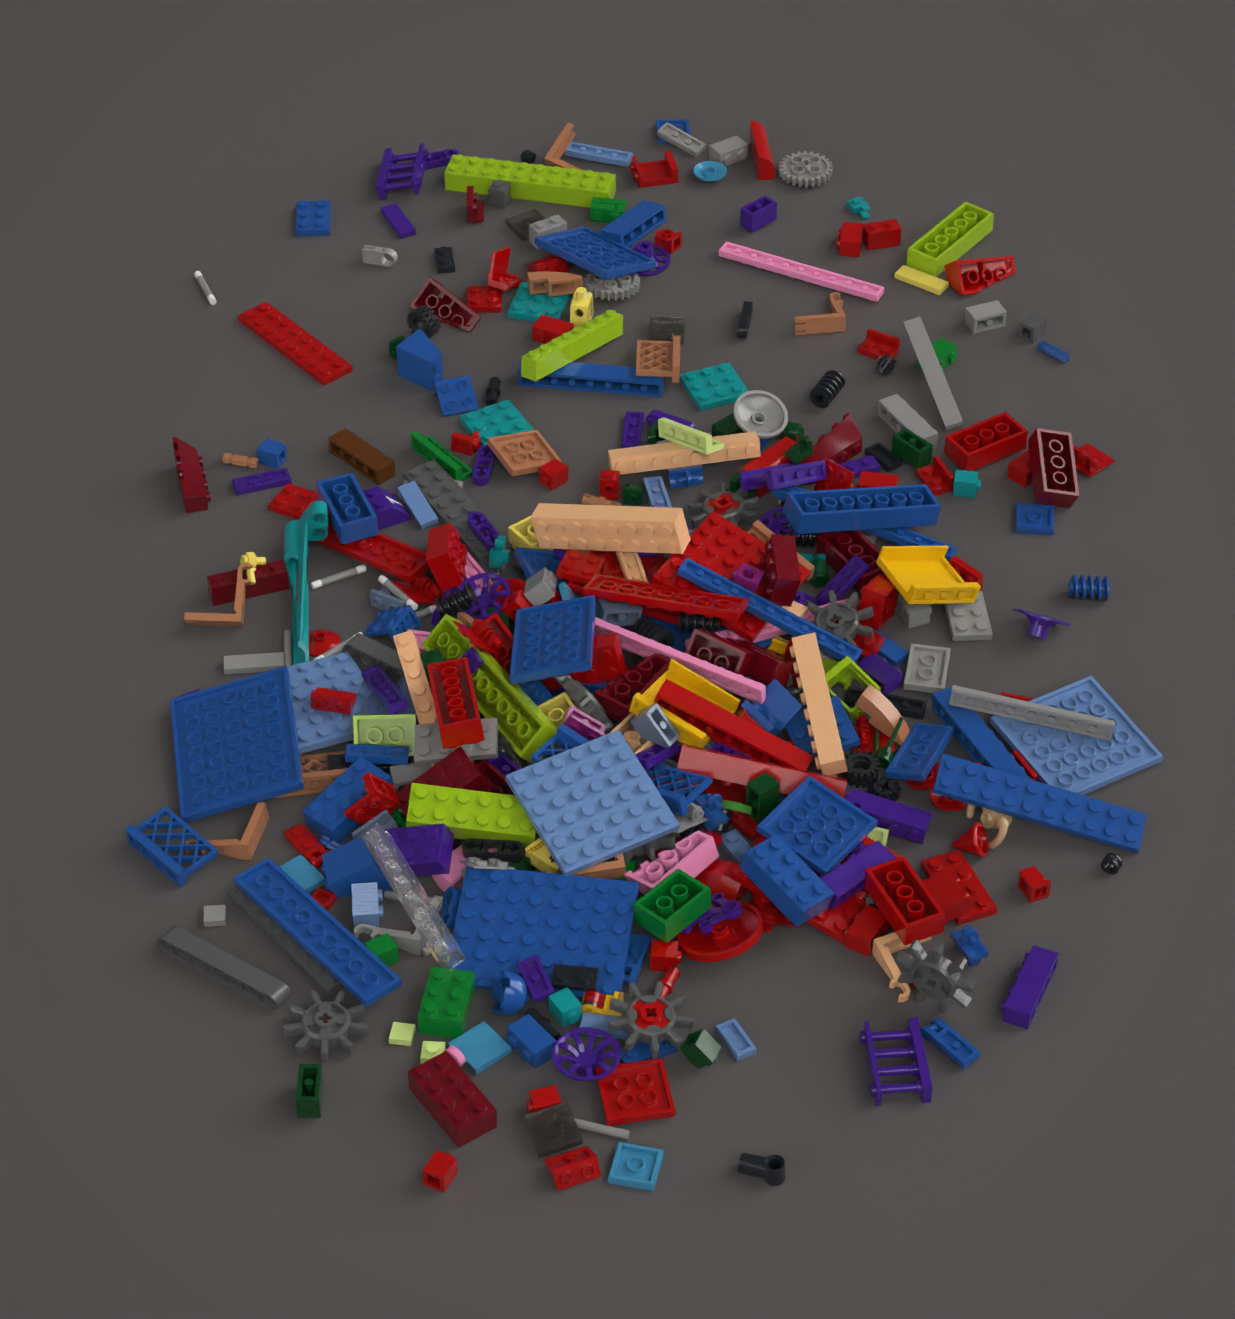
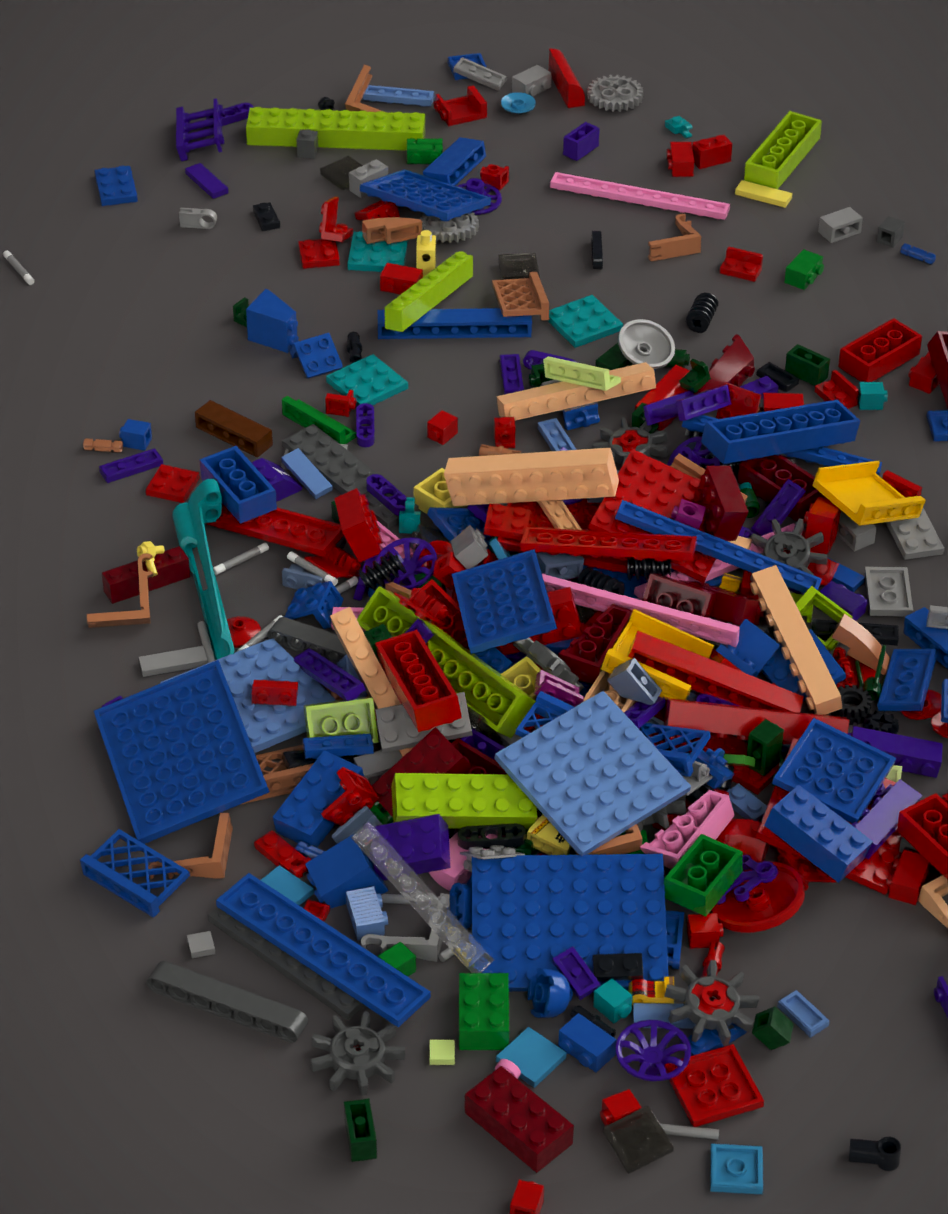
camera: 10 degrees left, 0 degrees up
(191, 477) = (55, 468): dark red wedge -> none
(295, 343) = (130, 317): red plate -> none
(423, 319) = (266, 274): black tyre -> none
(431, 1049) = (480, 1068): yellowish green plate -> none
(446, 305) = (279, 264): dark red wedge -> none
(474, 207) = (284, 159): dark red bracket -> none
(522, 451) = (404, 407): nougat plate -> none
(573, 1167) = (670, 1178): red bracket -> none
(633, 494) = (531, 440): dark green bracket -> none
(886, 364) = (754, 282): black gear -> none
(900, 415) = (787, 334): light grey brick -> none
(933, 373) = (807, 286): light grey tile -> none
(974, 275) = (818, 183): red wedge -> none

